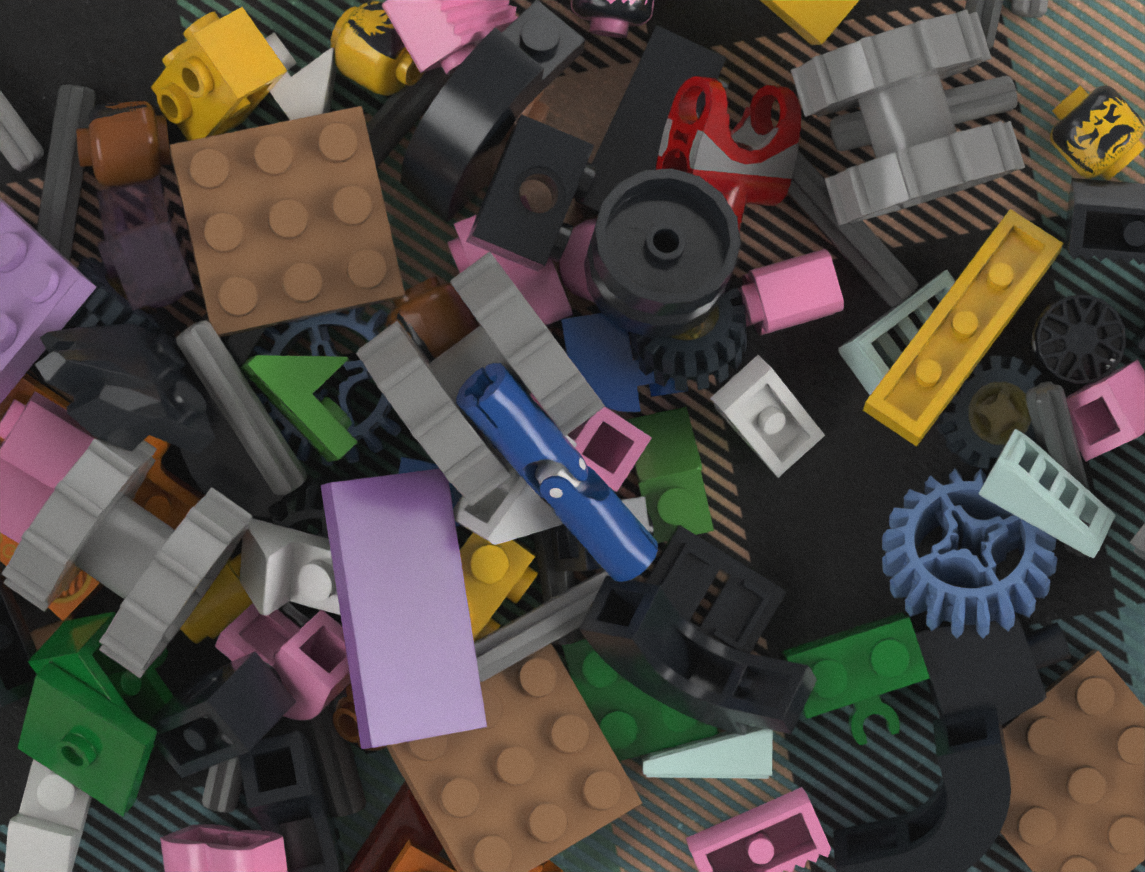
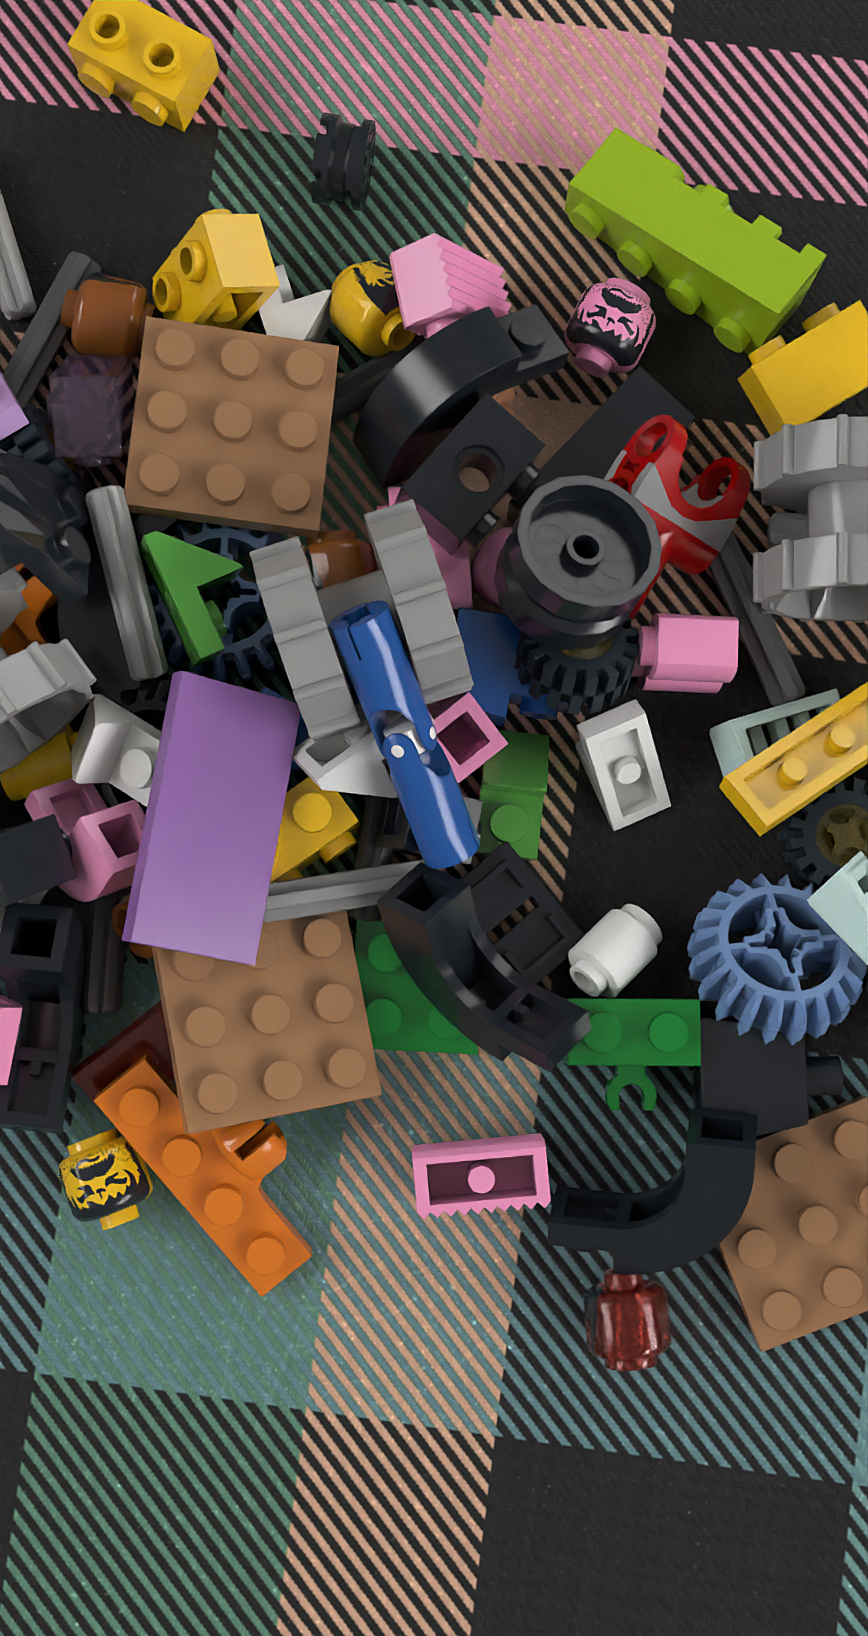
camera: 20 degrees right, 5 degrees down
(715, 757) = (469, 1075): light aqua slope -> none
(815, 595) = (614, 951): none -> white brick

